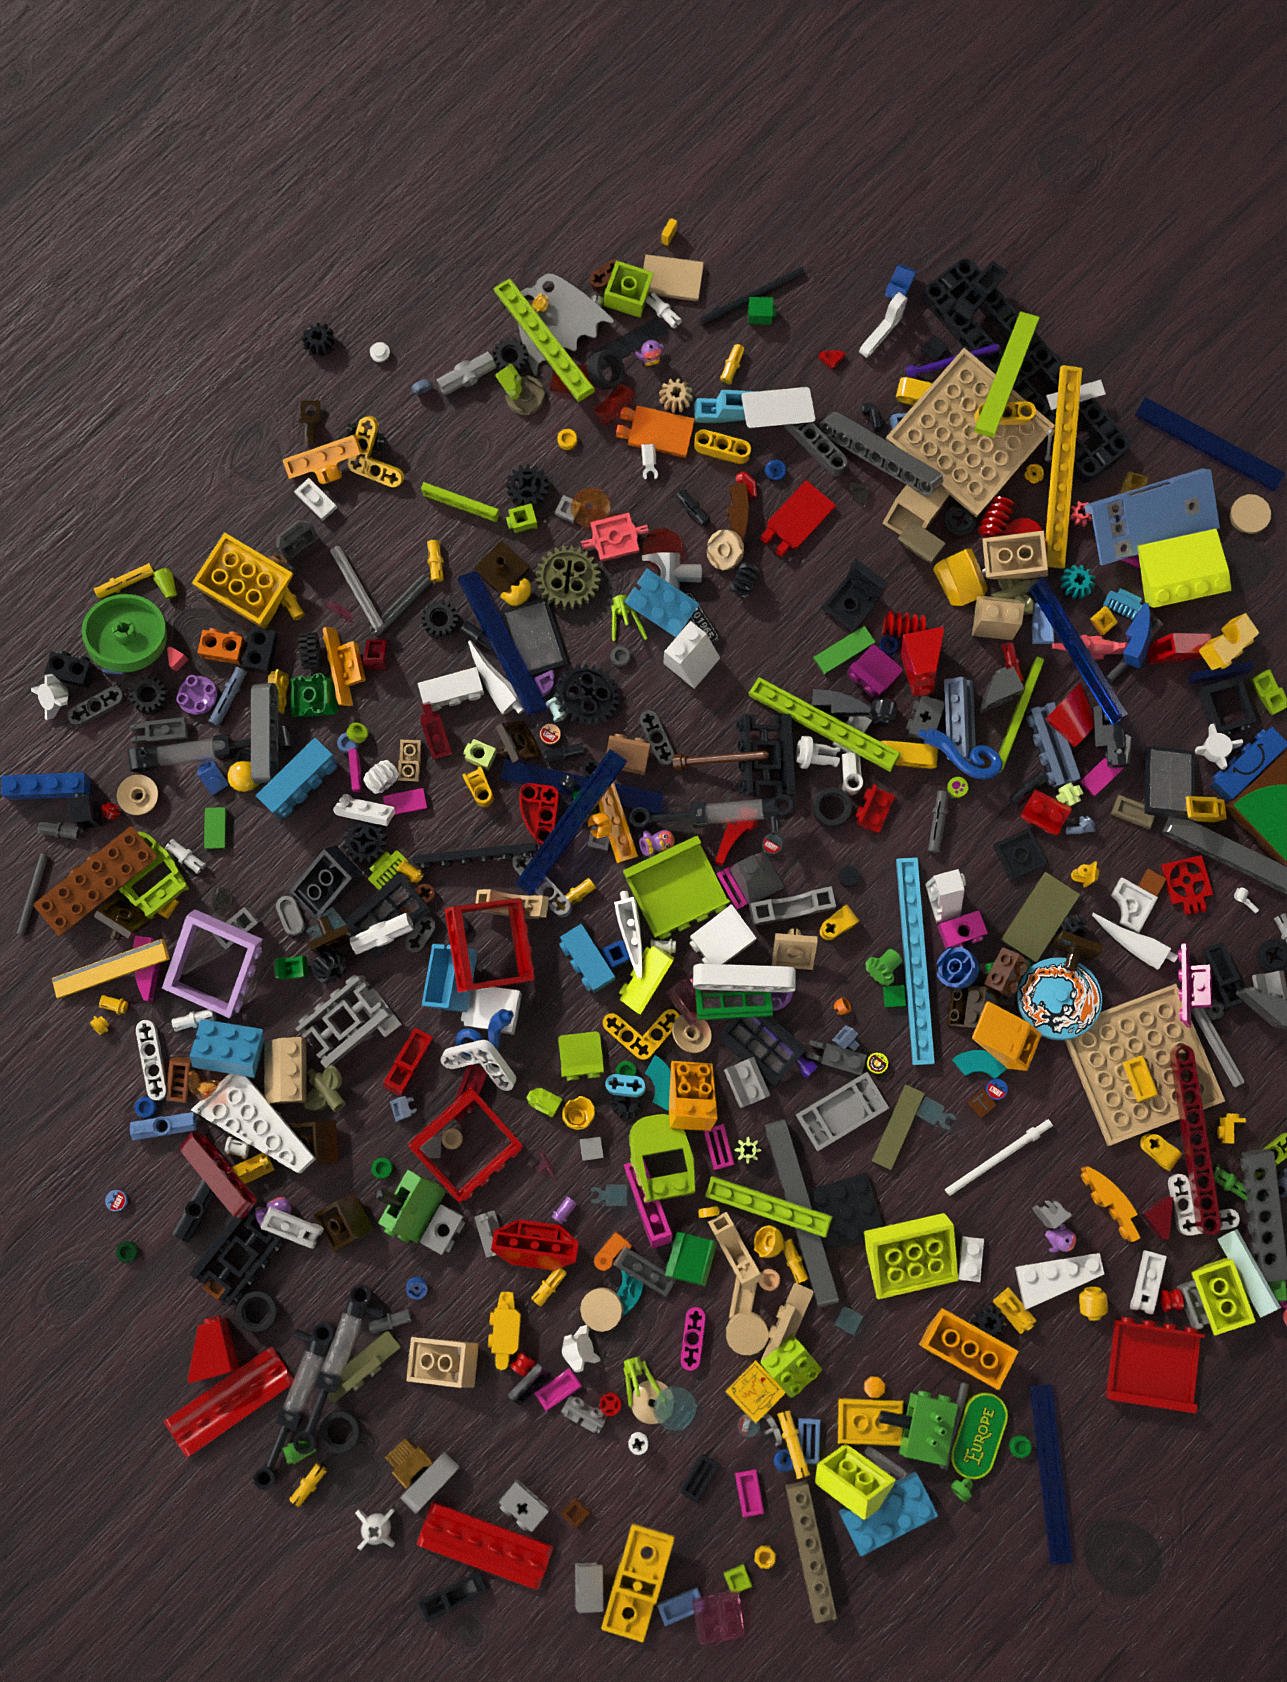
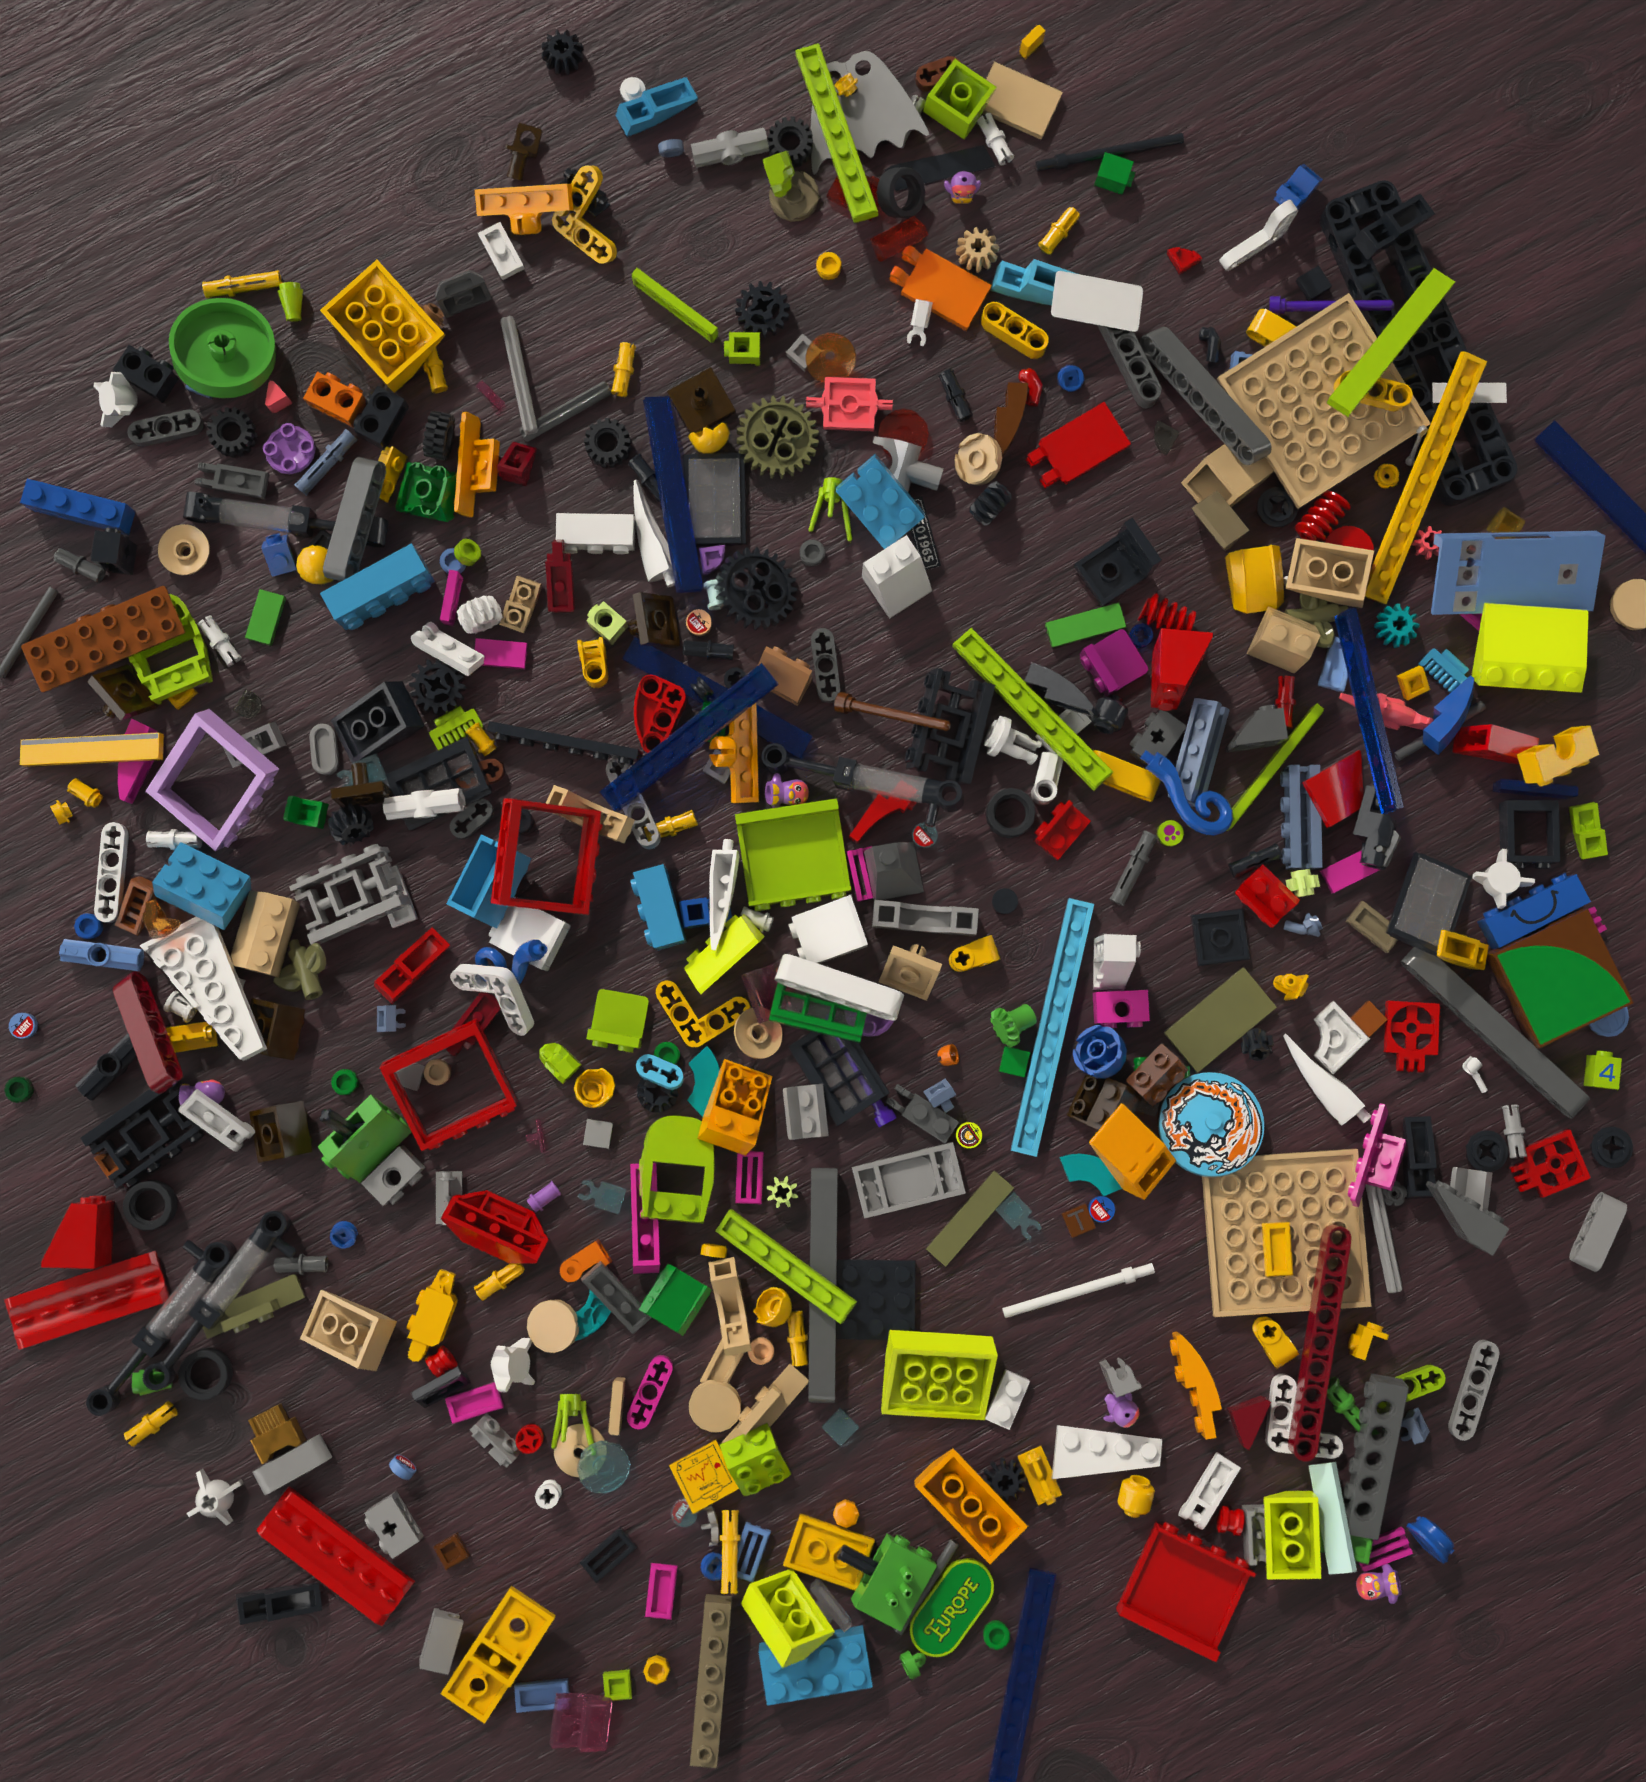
camera: 15 degrees right, 5 degrees up
(110, 811) = (146, 560): red plate -> none
(400, 359) = (655, 106): none -> dark azure slope
(517, 1457) = (402, 1467): none -> medium blue tile
(670, 1357) = (616, 1406): none -> tan tile
(1076, 948) = (1250, 1071): dark brown tile -> none

